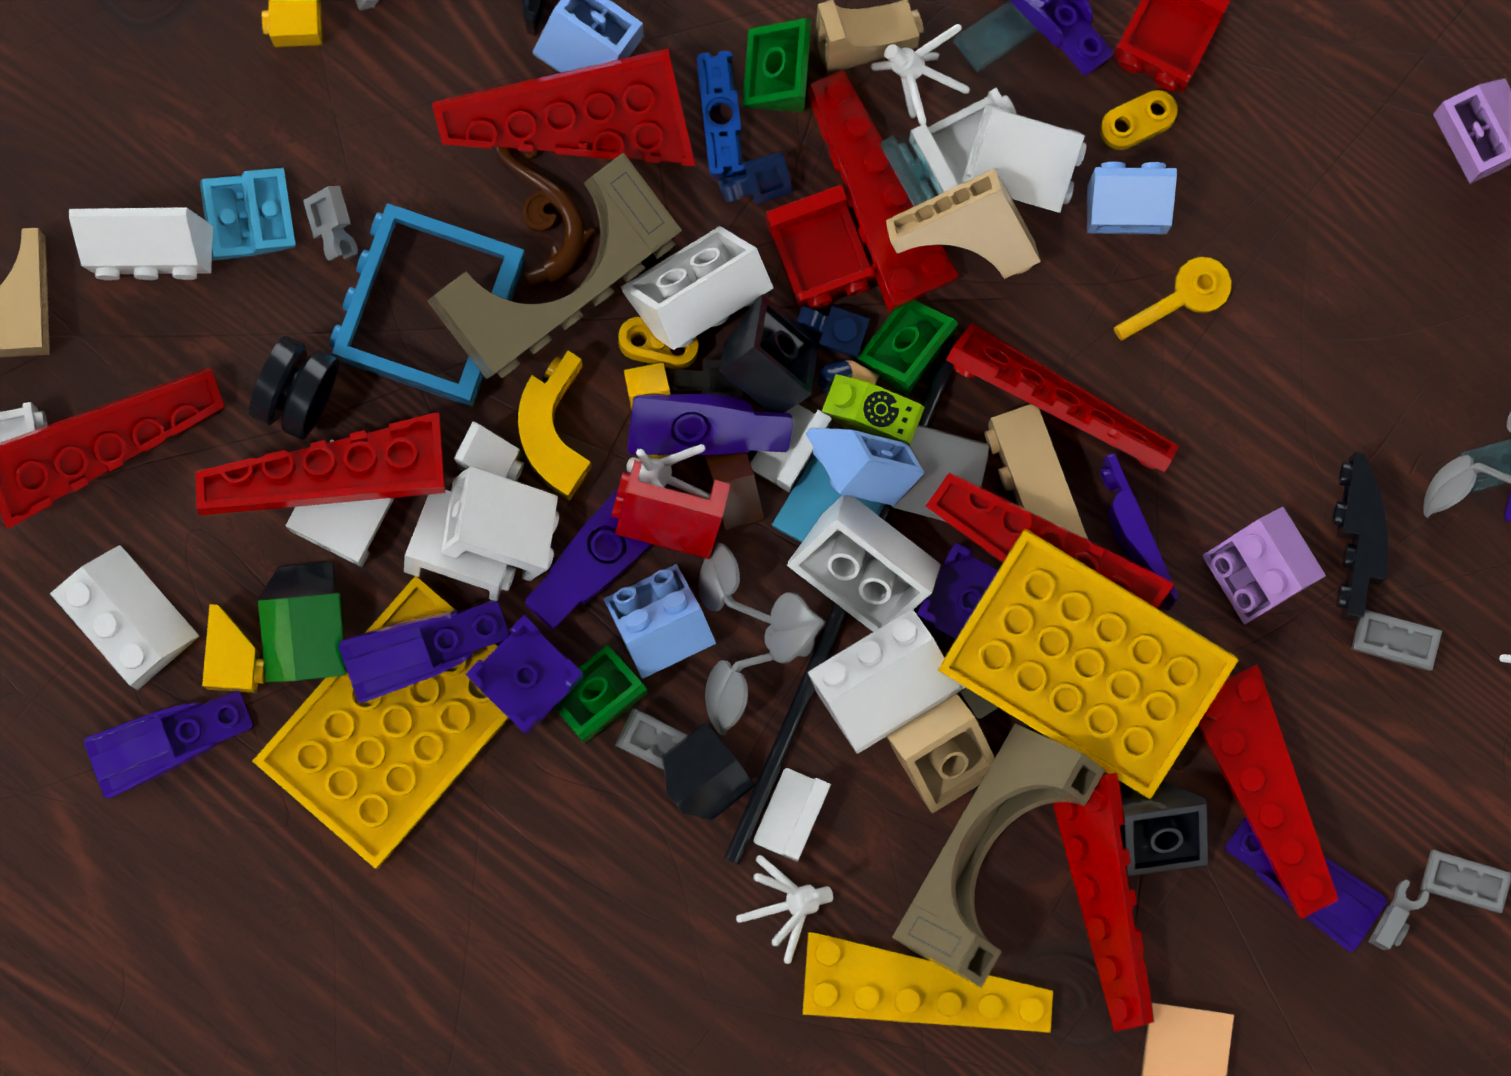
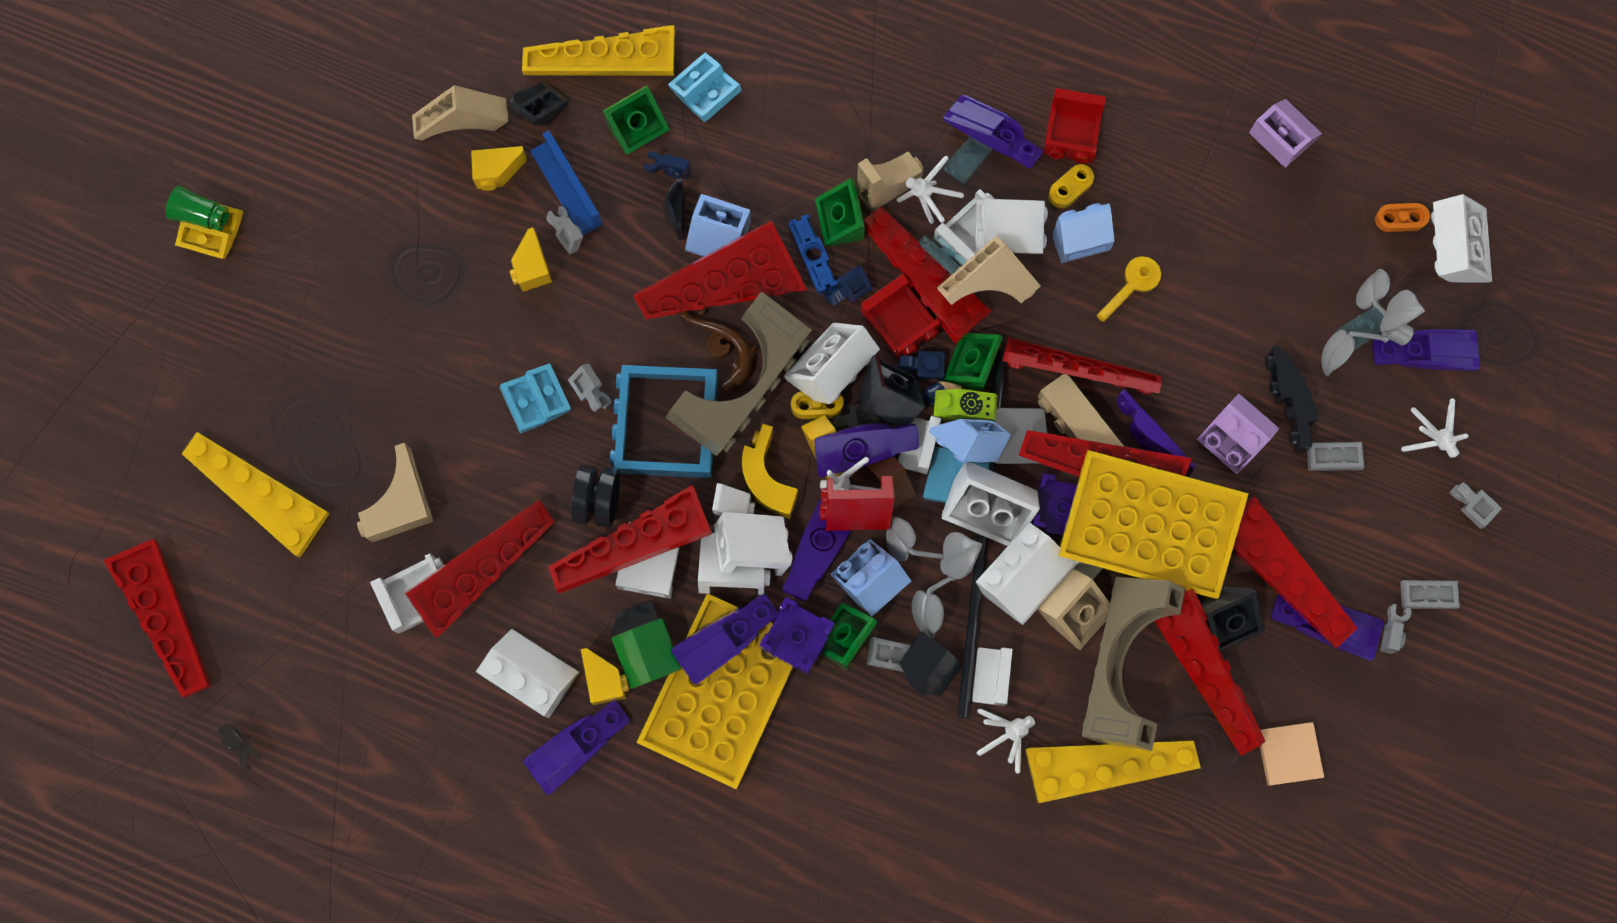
camera: 10 degrees left, 5 degrees down
(142, 242) = (473, 432): white slope -> none

